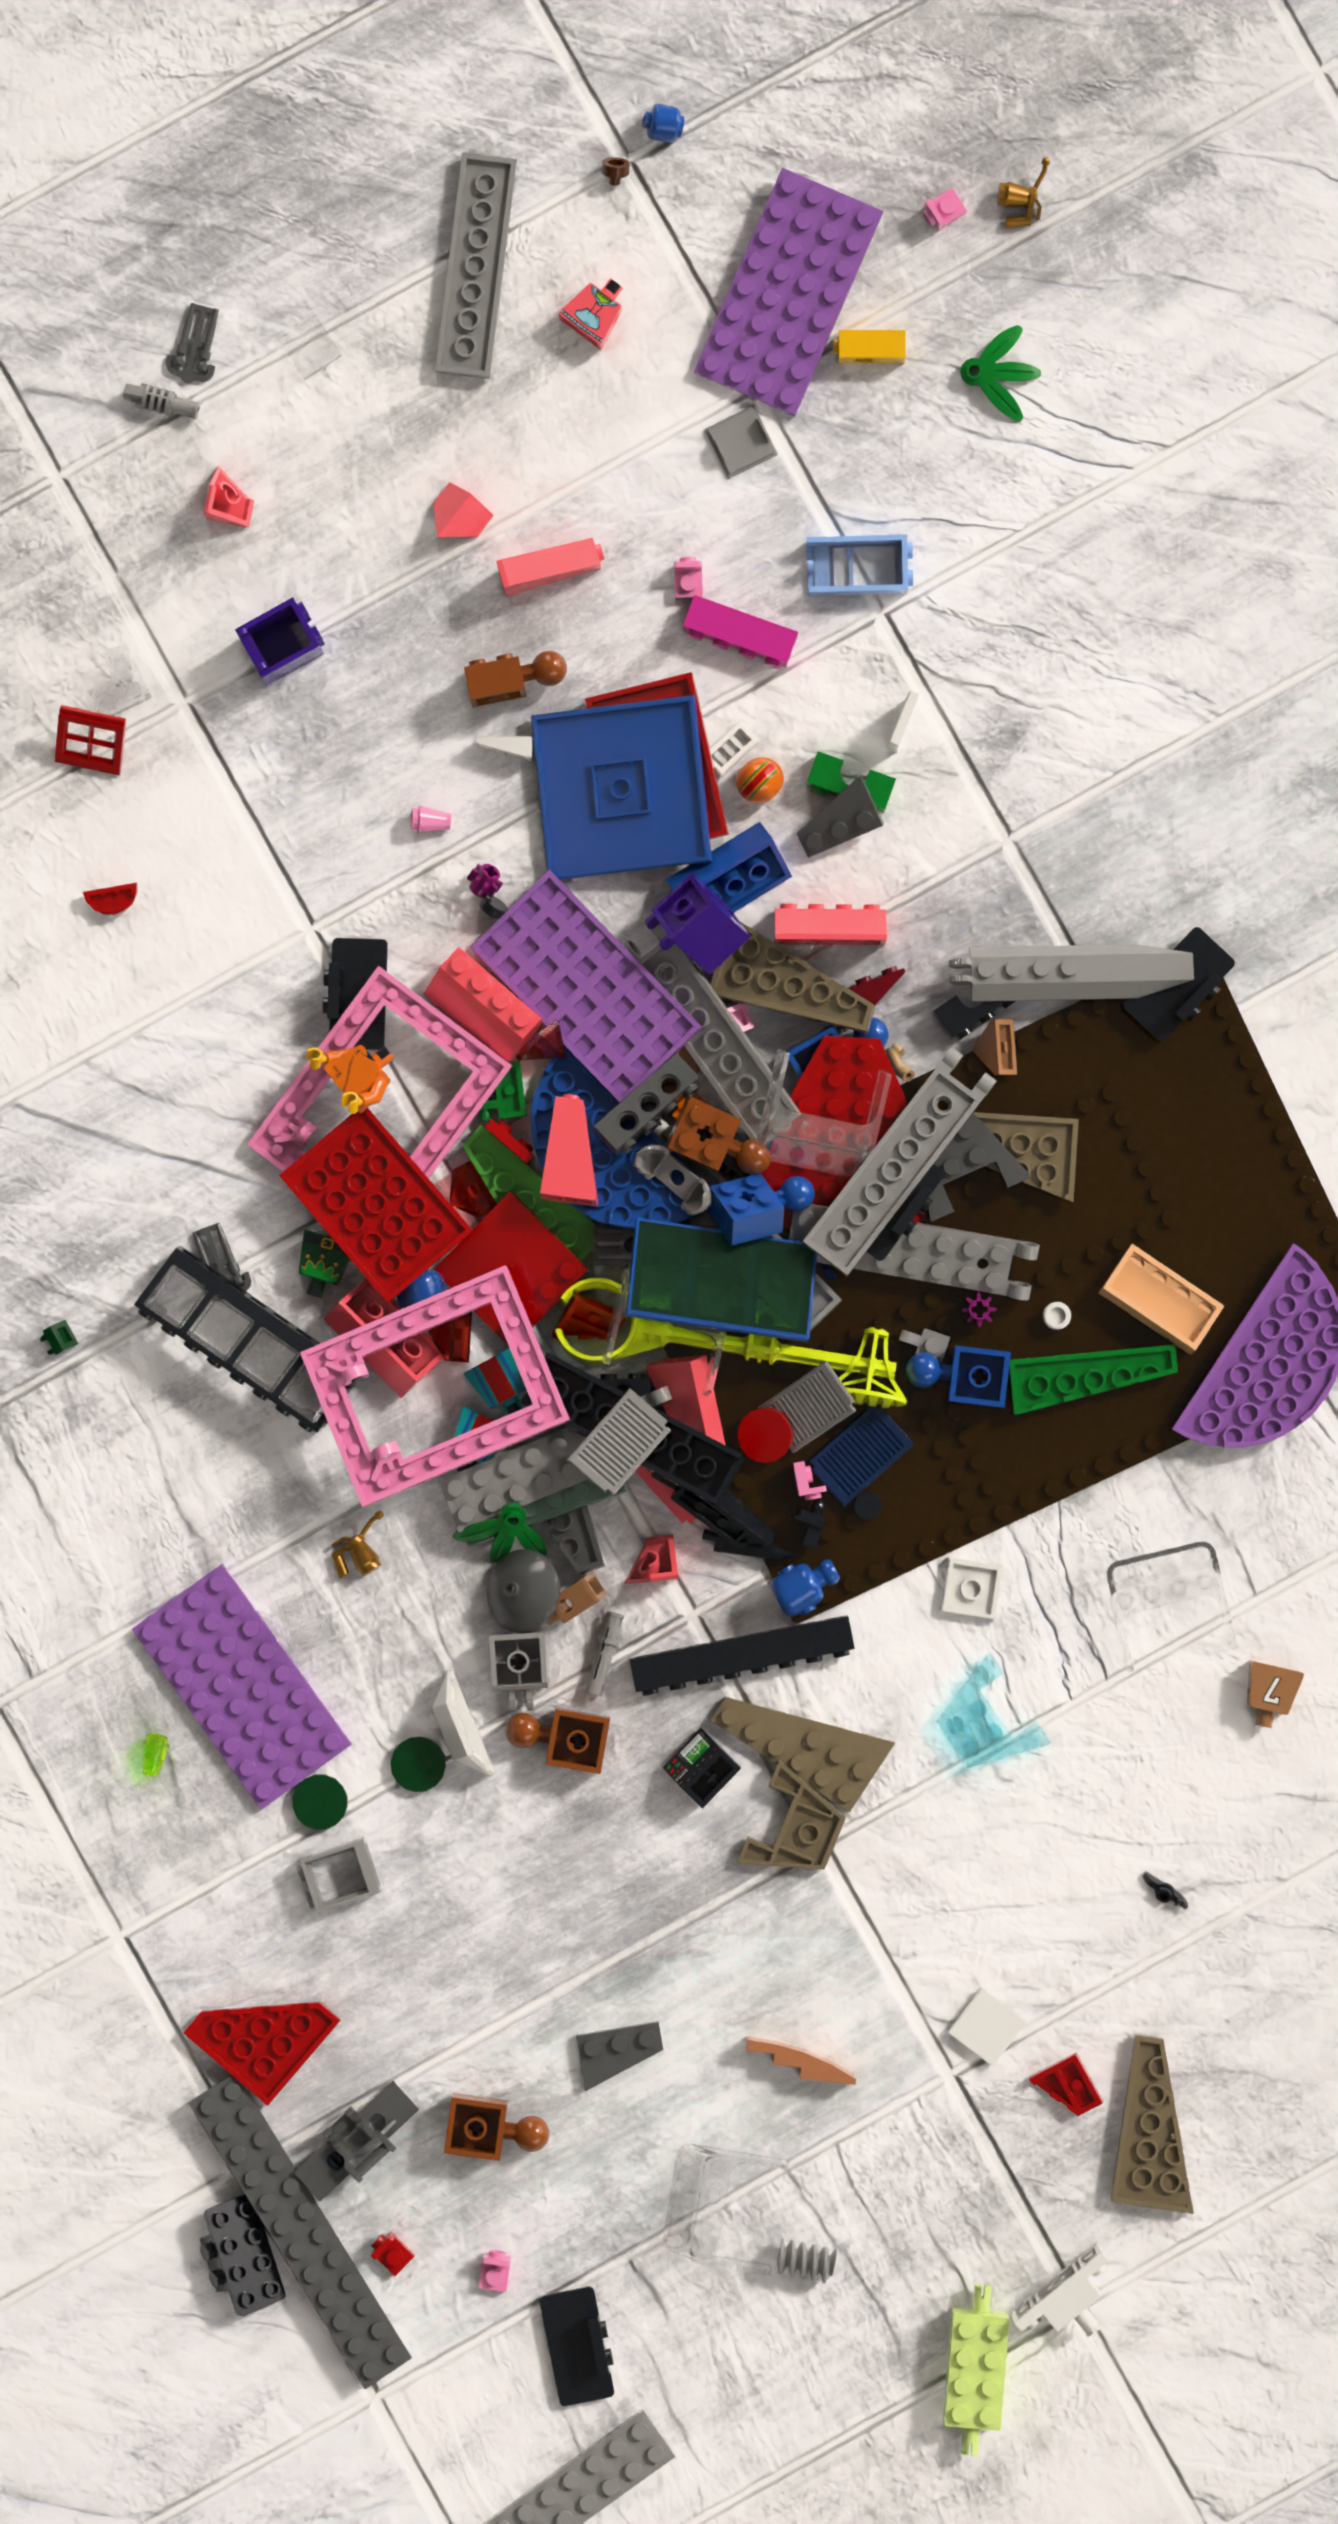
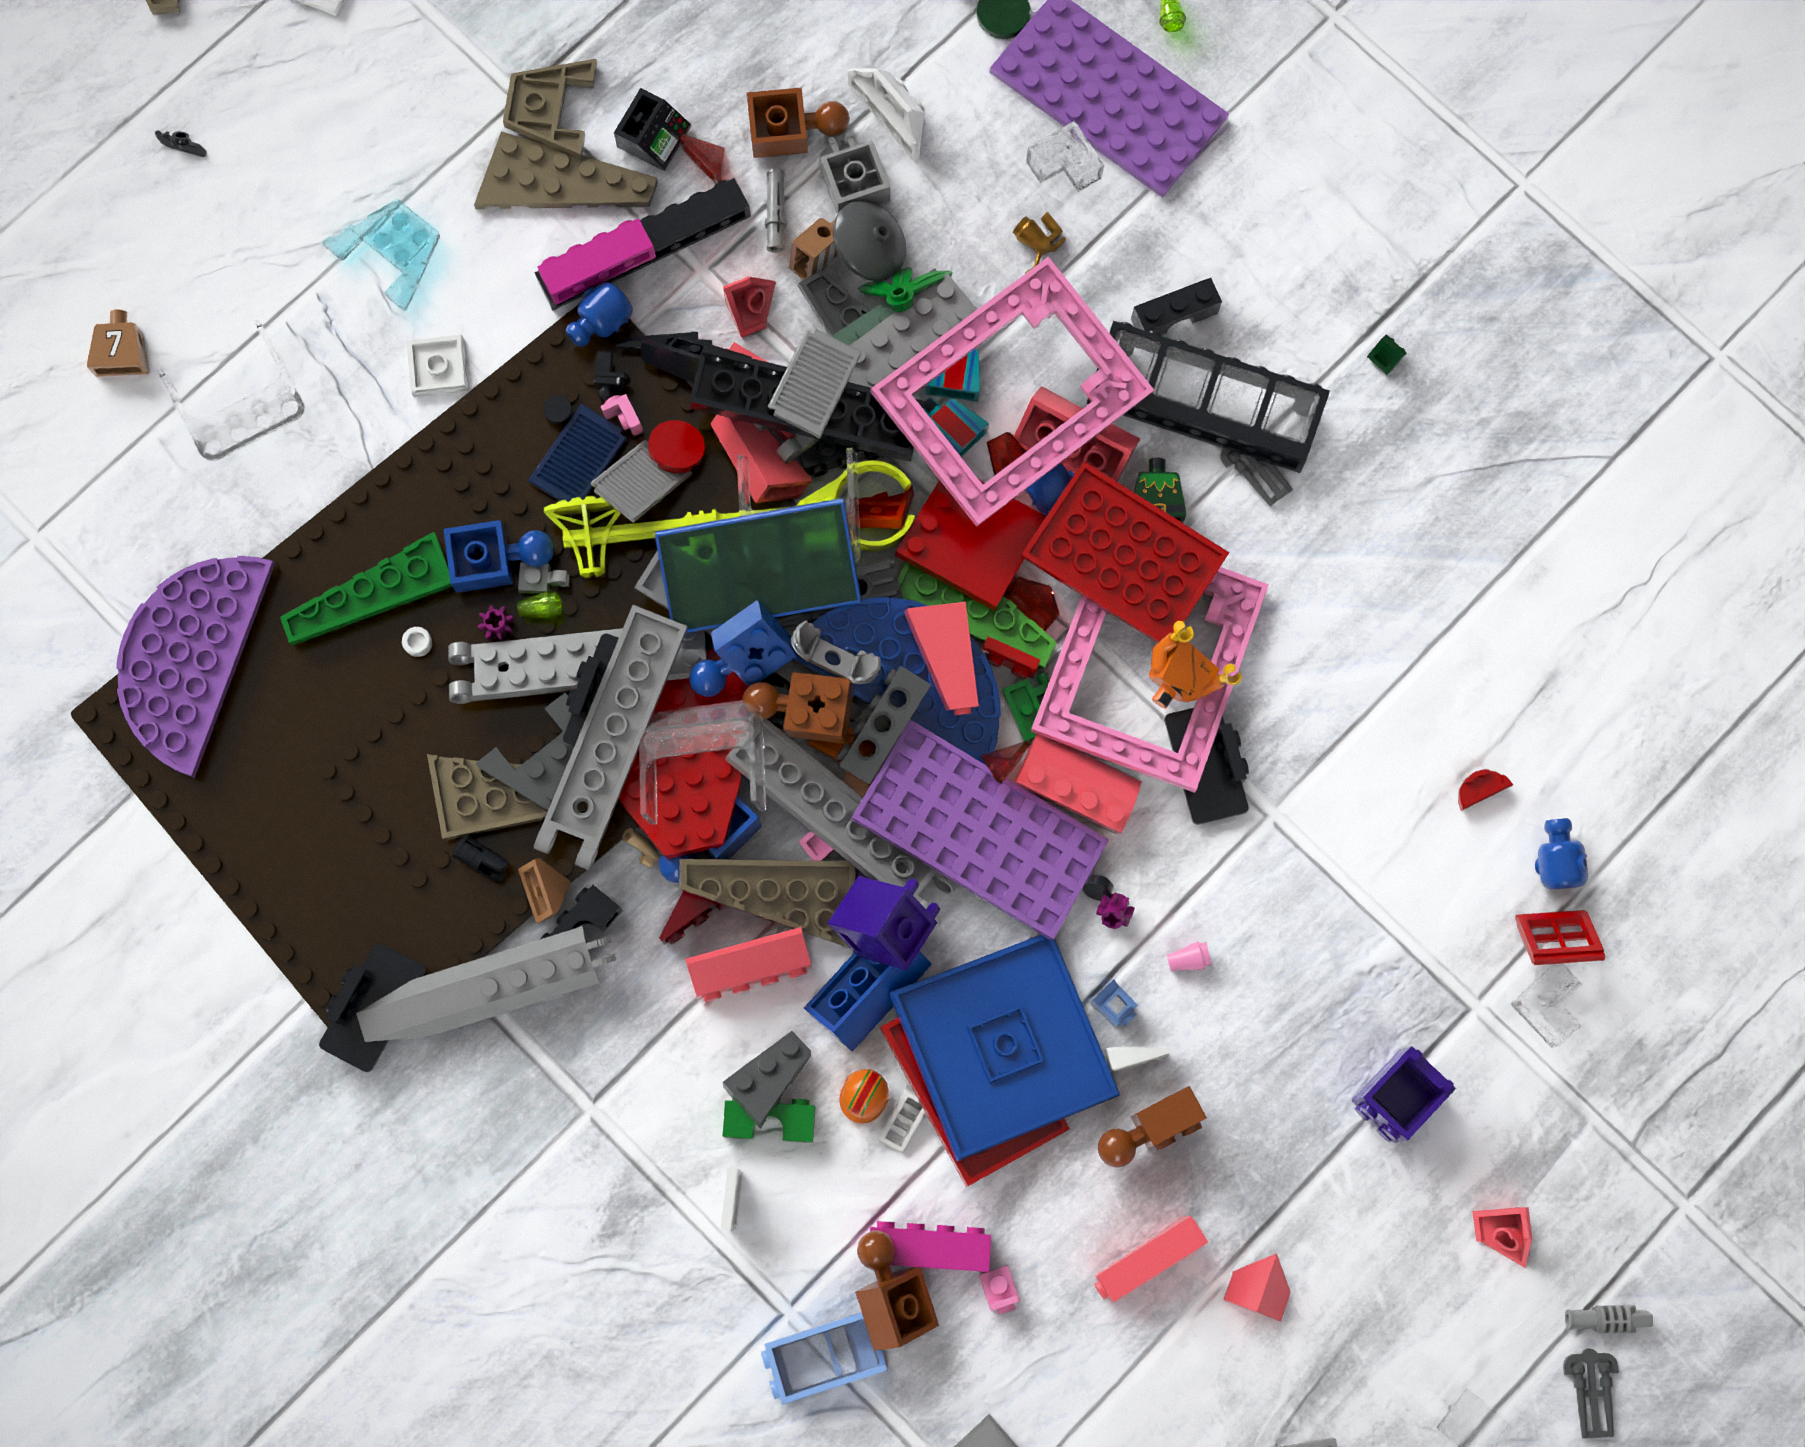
camera: 160 degrees right, 10 degrees down
(62, 812) = (1561, 860): none -> blue piece
(248, 1439) = (1191, 302): none -> black arch
(418, 1764) = (922, 68): dark green tile -> none
(510, 796) = (1115, 1004): none -> medium blue window
(654, 1729) = (705, 155): none -> clear red slope
(781, 590) = (898, 1303): none -> dark orange brick
(792, 1637) = (596, 260): none -> dark pink brick
(932, 1315) = (541, 606): none -> clear neon green cone
(1047, 1090) = (480, 858): none -> black hinge
(1161, 1299) = (314, 685): light nougat slope -> none

